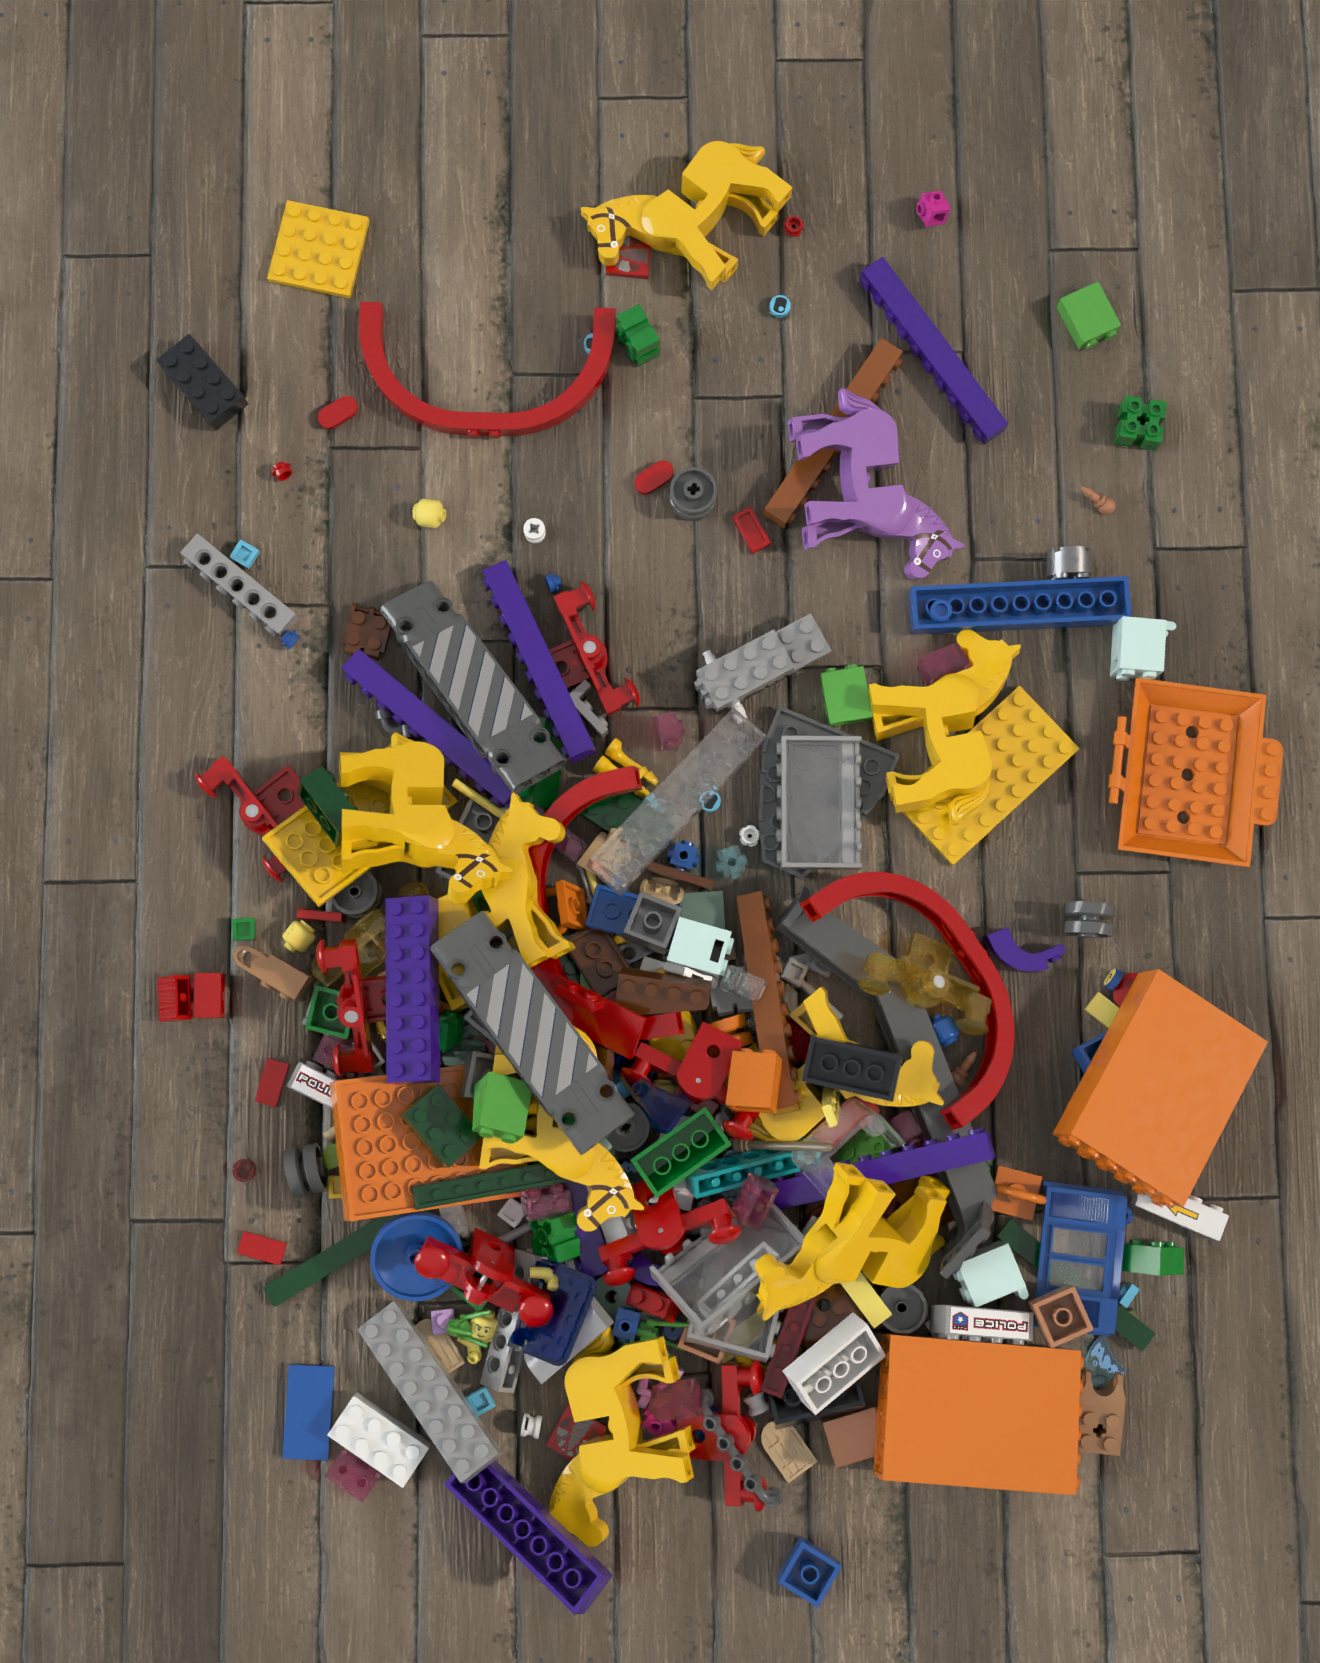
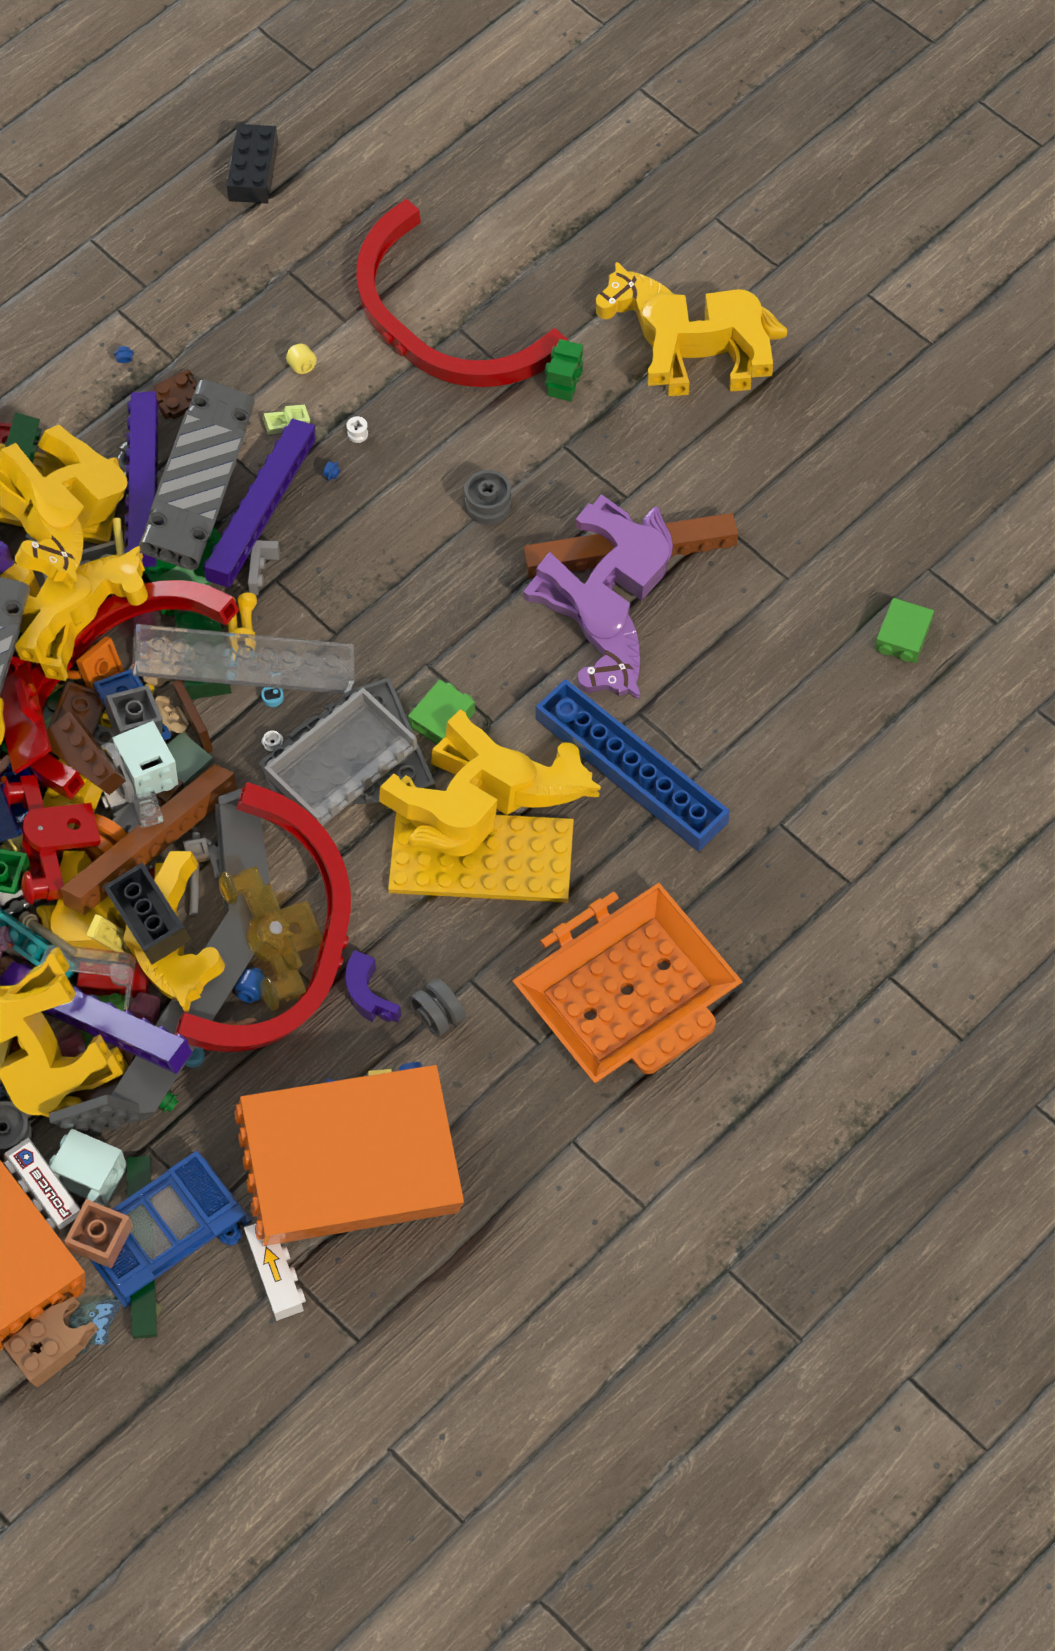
camera: 50 degrees right, 20 degrees down
(199, 548) = (130, 295): light grey brick -> none
(244, 554) = (157, 282): medium azure plate -> none
(282, 471) = (240, 256): red plate -> none
(318, 249) = (421, 153): yellow plate -> none
(338, 412) = (317, 254): red tile -> none
(471, 573) = (276, 421): none -> yellowish green slope
(587, 655) = (299, 529): red piece -> none
(633, 260) = (620, 328): tile -> none
(654, 477) = (467, 466): red tile -> none
(668, 730) = (294, 619): clear pink brick -> none
(683, 864) = (211, 709): blue brick -> none
(731, 854) = (238, 741): clear light blue brick -> none
(751, 530) = (504, 558): red tile -> none
(754, 1081) = (73, 860): orange brick -> none
(759, 664) = (402, 636): light grey piece -> none
(779, 306) = (689, 440): medium azure tile -> none
(797, 222) = (757, 395): red plate -> none
(933, 208) = (867, 467): dark pink brick -> none
(933, 351) = (763, 558): dark purple brick -> none
(942, 662) = (535, 748): clear pink brick -> none
(1017, 1193) = (172, 1140): orange tile -> none
(1069, 562) = (700, 766): flat silver brick -> none
(1105, 505) = (776, 763): nougat bar -> none
(1127, 1294) = (168, 1287): medium azure plate -> none
(1129, 430) = (861, 729): green brick -> none
(1139, 648) = (685, 866): light aqua container -> none
(1153, 1259) = (214, 1277): green brick -> none

